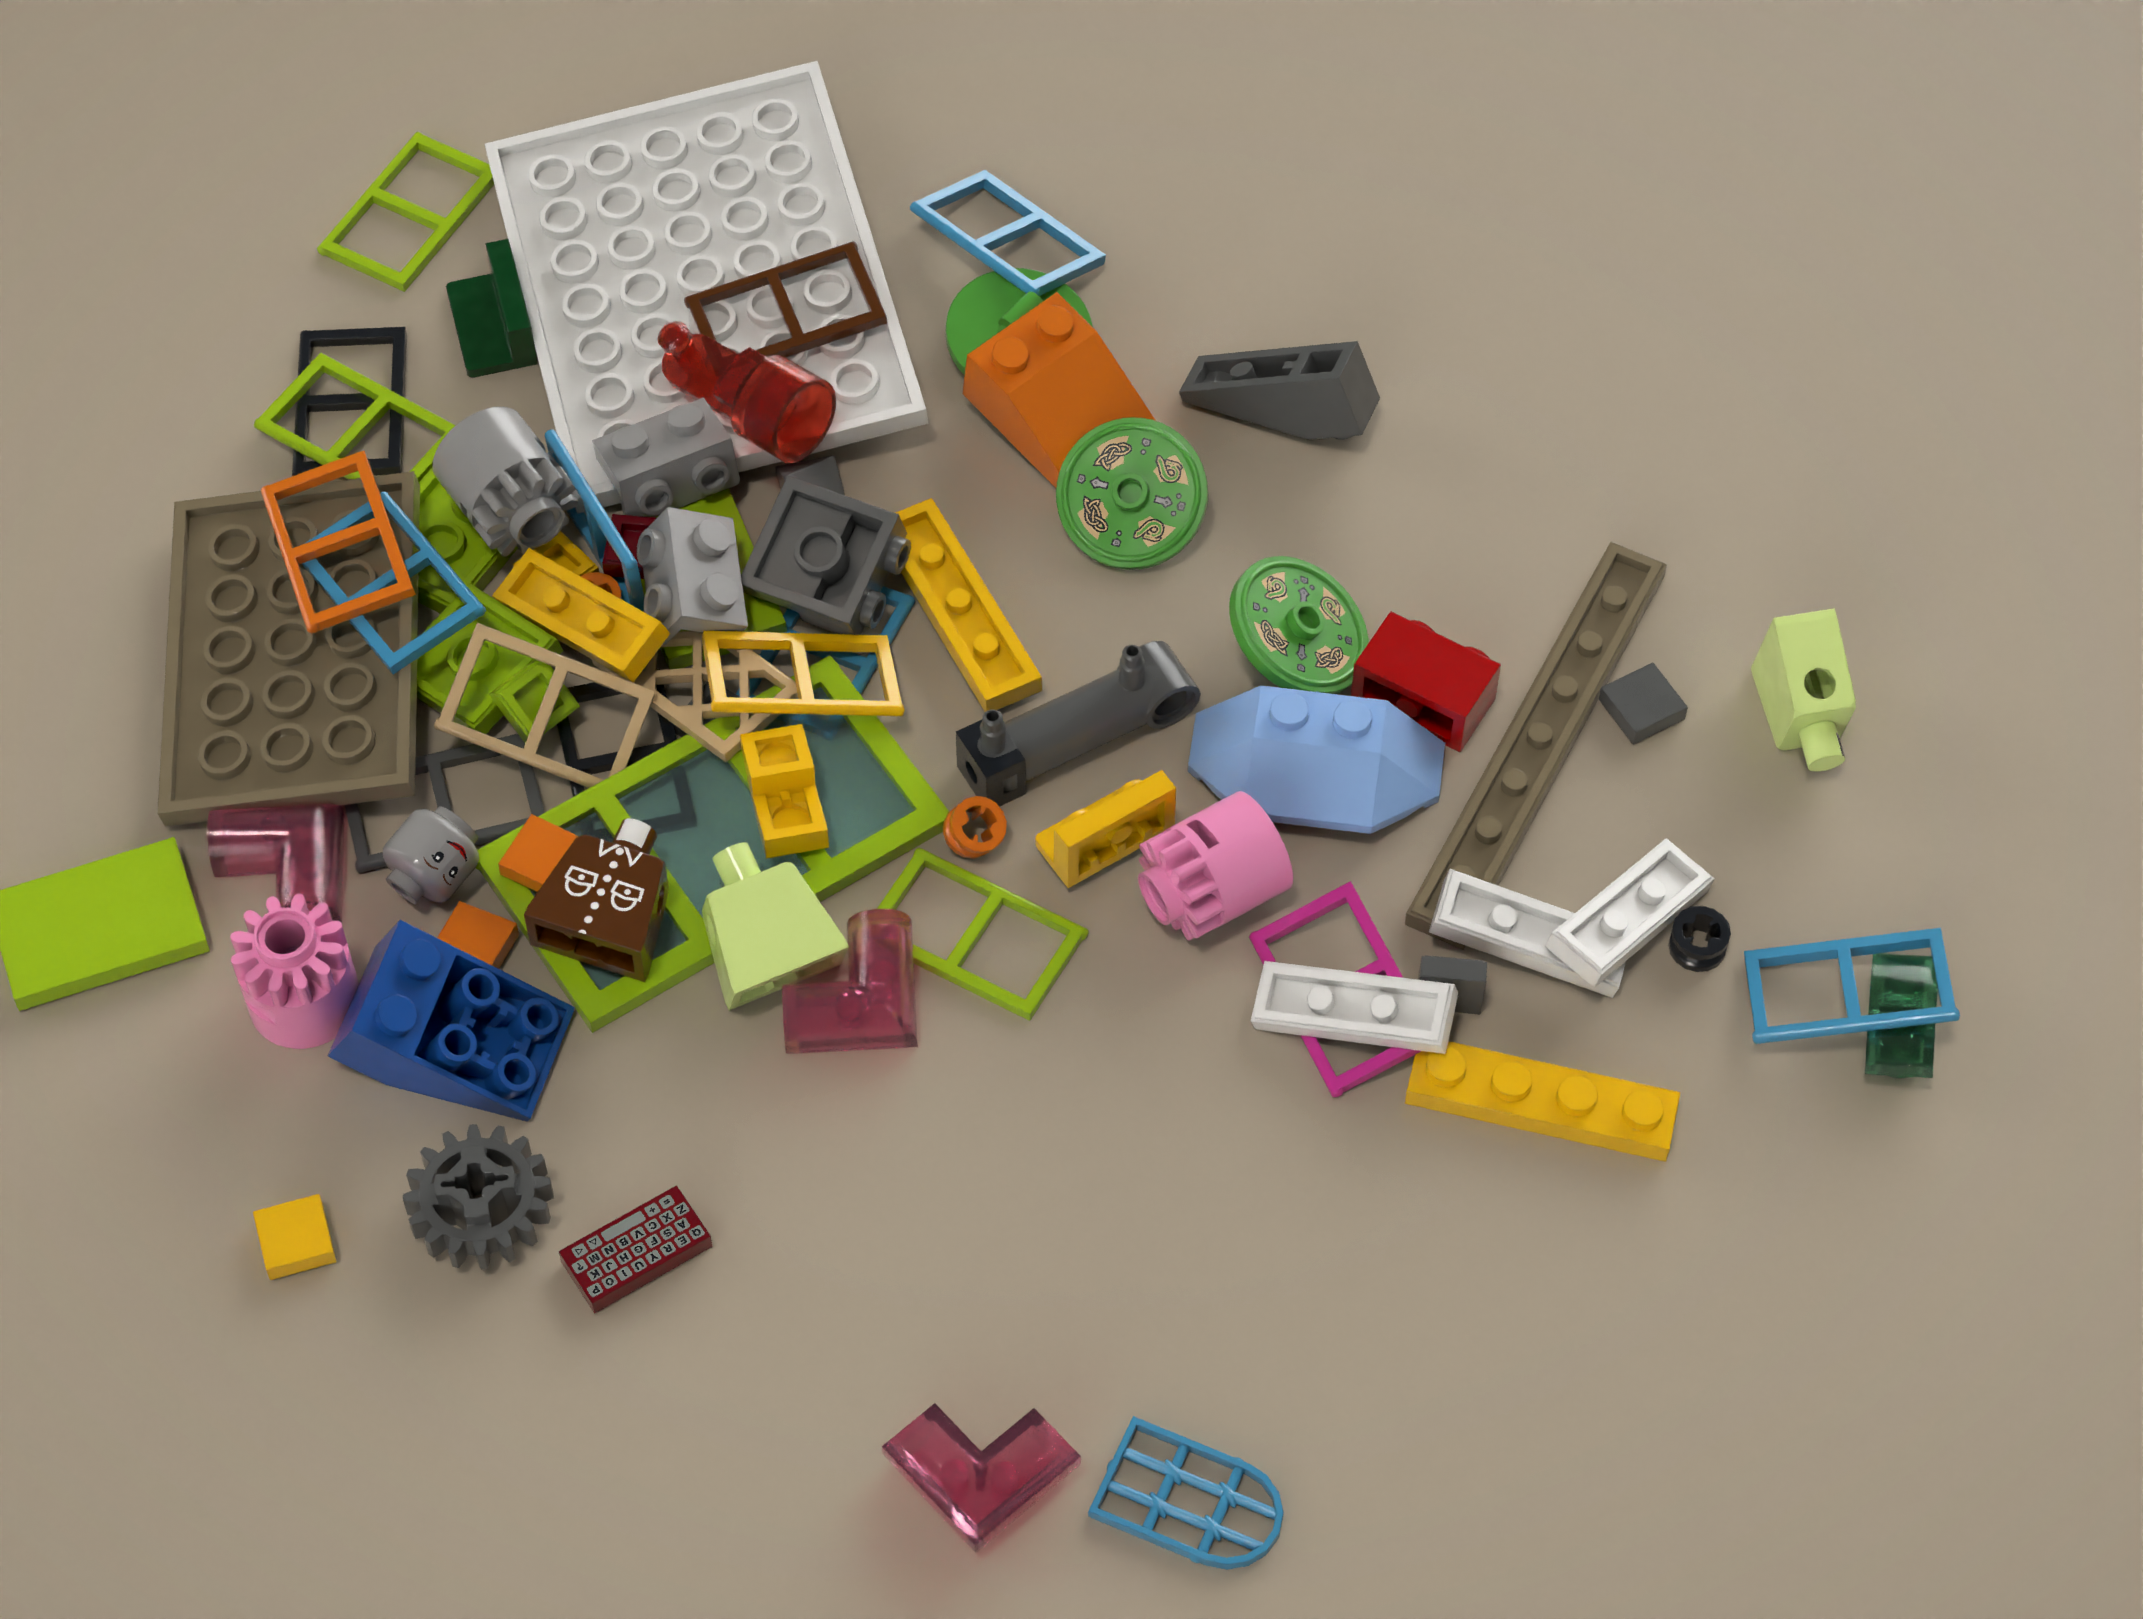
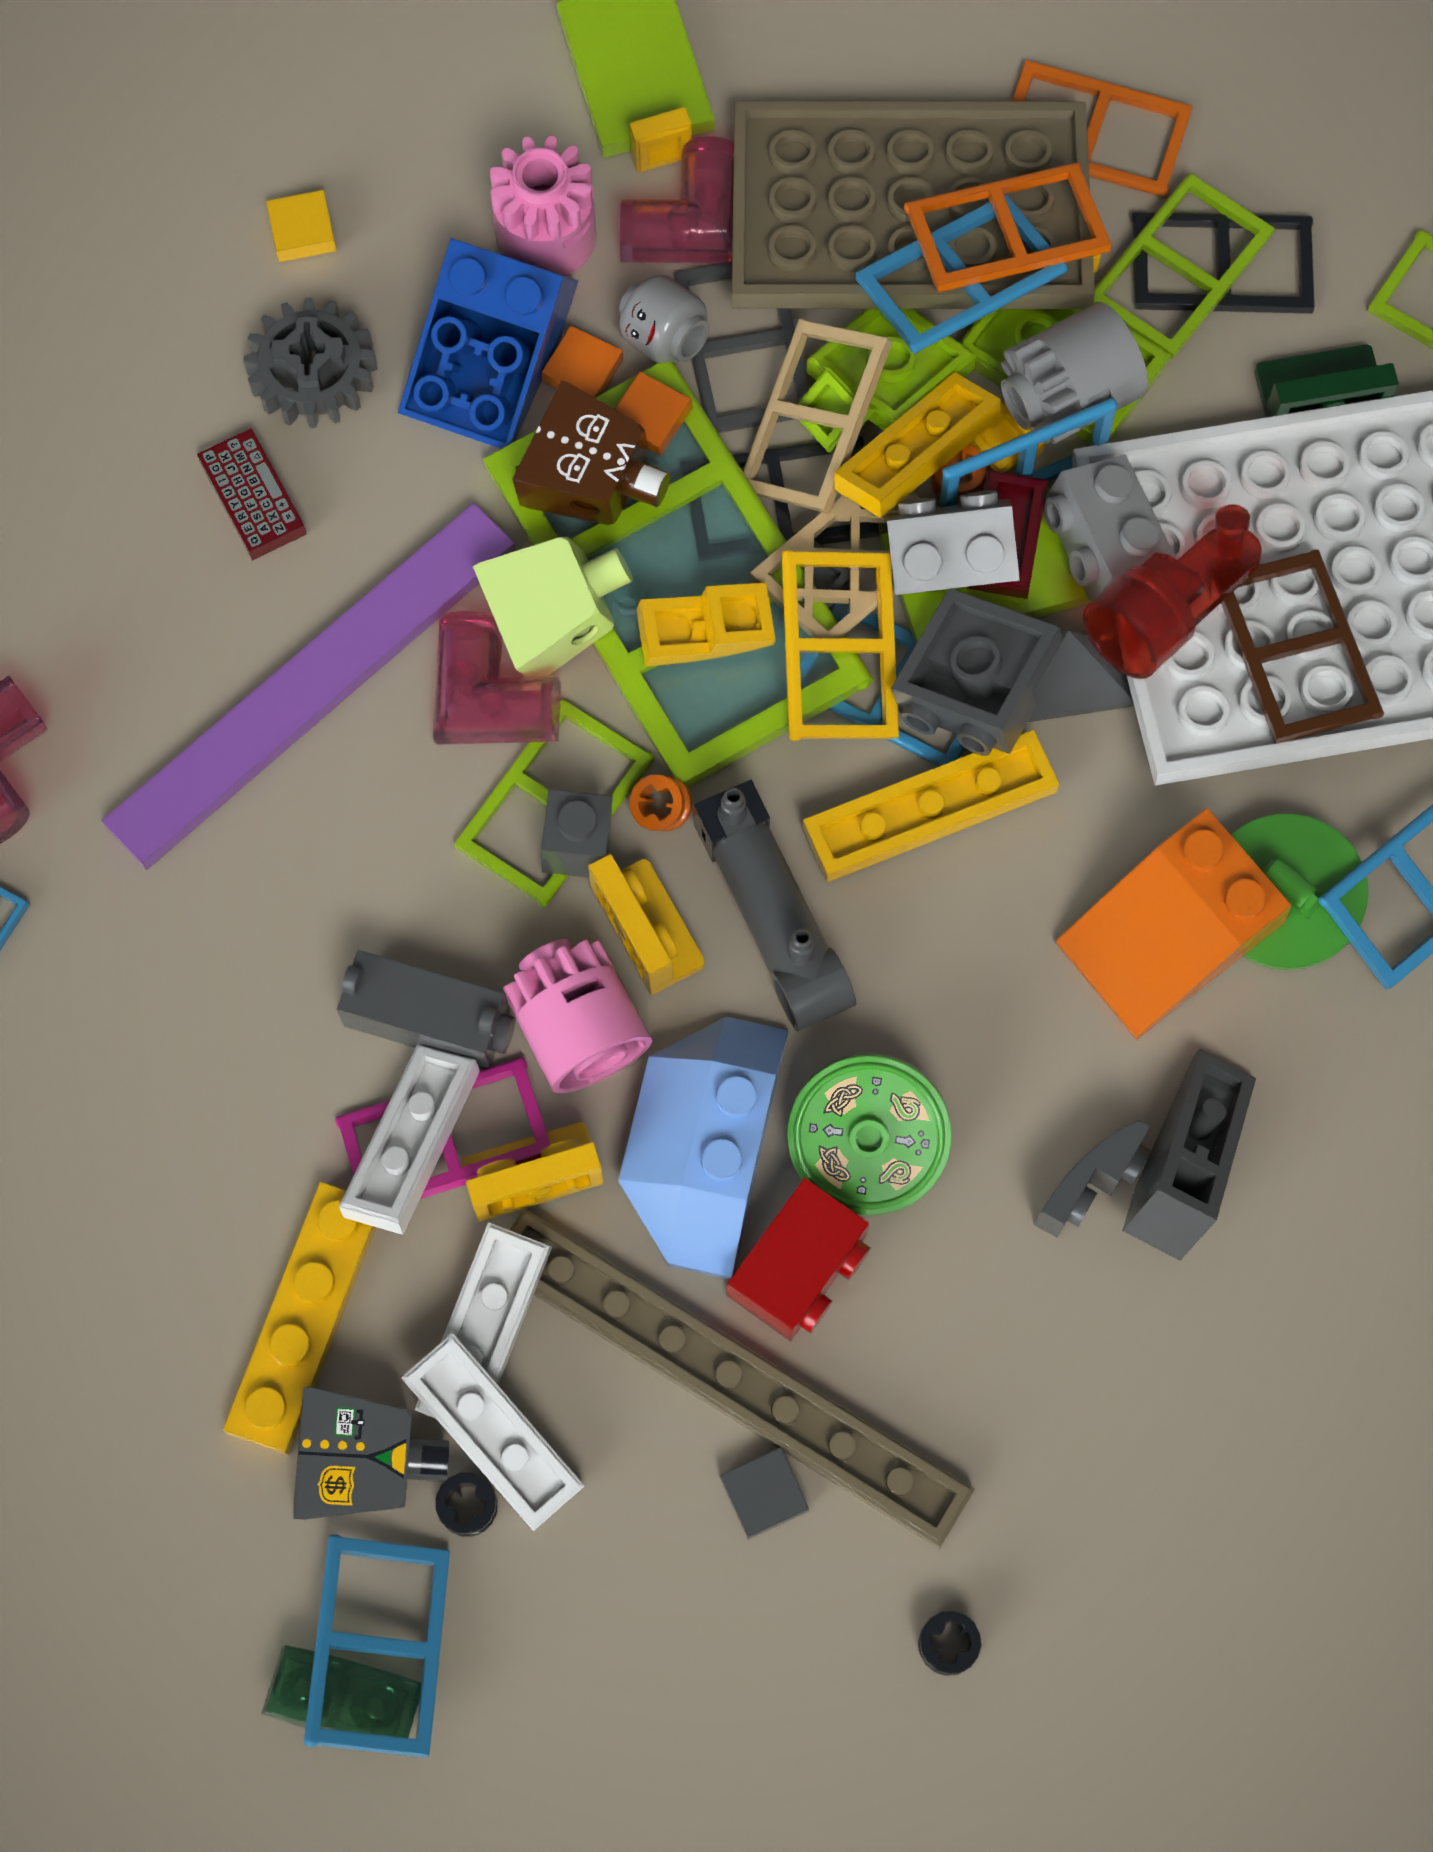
camera: 95 degrees right, 15 degrees up
(152, 503) = (1105, 93): none -> orange window
(203, 880) = (659, 139): none -> yellow tile
(865, 1168) = (306, 688): none -> medium lavender tile
(1023, 883) = (575, 832): none -> dark grey brick
(1132, 493) = (1052, 981): bright green shield -> none
(1217, 1011) = (424, 1008): none -> dark grey brick
(1297, 453) = (1103, 1167): none -> dark grey slope
(1384, 890) = (564, 1169): none -> yellow bracket
(1466, 974) = (429, 1238): dark grey tile -> none
(1680, 1022) = (358, 1456): none -> dark grey torso
(1734, 564) = (963, 1659): none -> black bush
(1806, 686) = (768, 1663): yellowish green torso -> none

